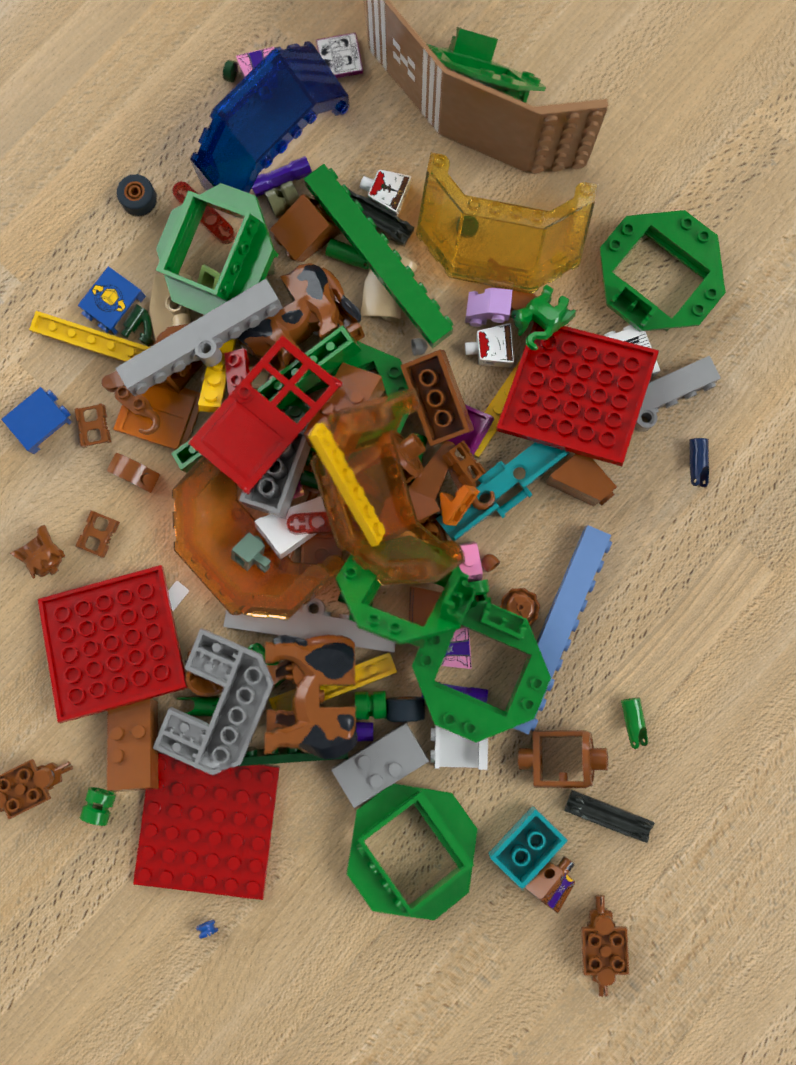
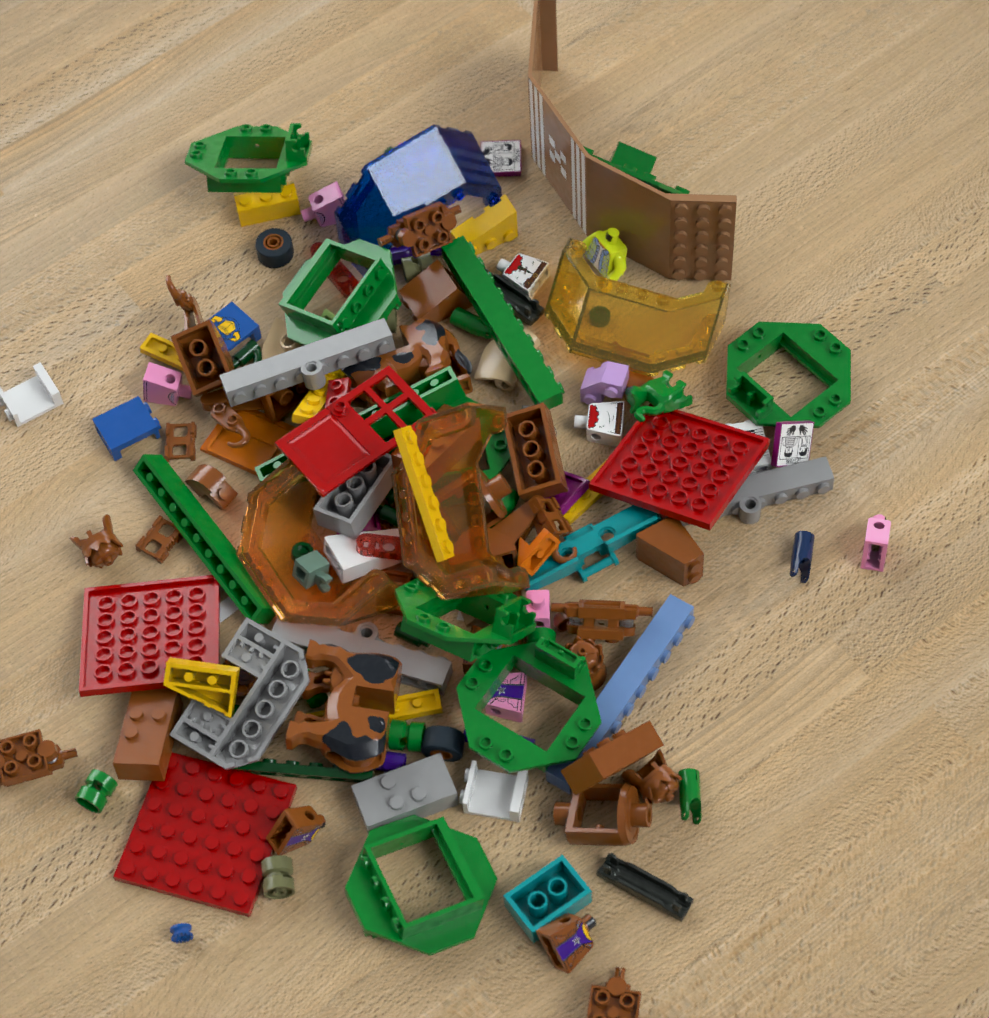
camera: 10 degrees right, 25 degrees down
(48, 96) = (212, 154): none -> green hinge
(55, 370) = (164, 385): none -> bright pink torso
(90, 331) = (199, 346): none -> dark orange slope
(117, 142) = (265, 207): none -> yellow slope
(133, 526) = (203, 536): none -> green brick
(173, 701) = (206, 682): none -> yellow wedge
(178, 140) = (324, 205): none -> bright pink torso
(235, 532) = (300, 549): none -> dark green tile
(282, 864) = (278, 877): none -> olive wheel
(284, 165) = (423, 229): none -> dark orange piece
(290, 817) = (295, 829): none -> dark orange torso
(344, 145) = (490, 228): none -> yellow wedge
(465, 158) = (607, 253): none -> neon yellow torso
(529, 563) = (601, 618): none -> dark orange piece
(567, 713) = (611, 757): none -> dark orange brick
(601, 714) = (654, 780): none -> dark orange hat
(677, 348) = (792, 442): none -> tile
(767, 438) = (877, 534): none -> bright pink torso

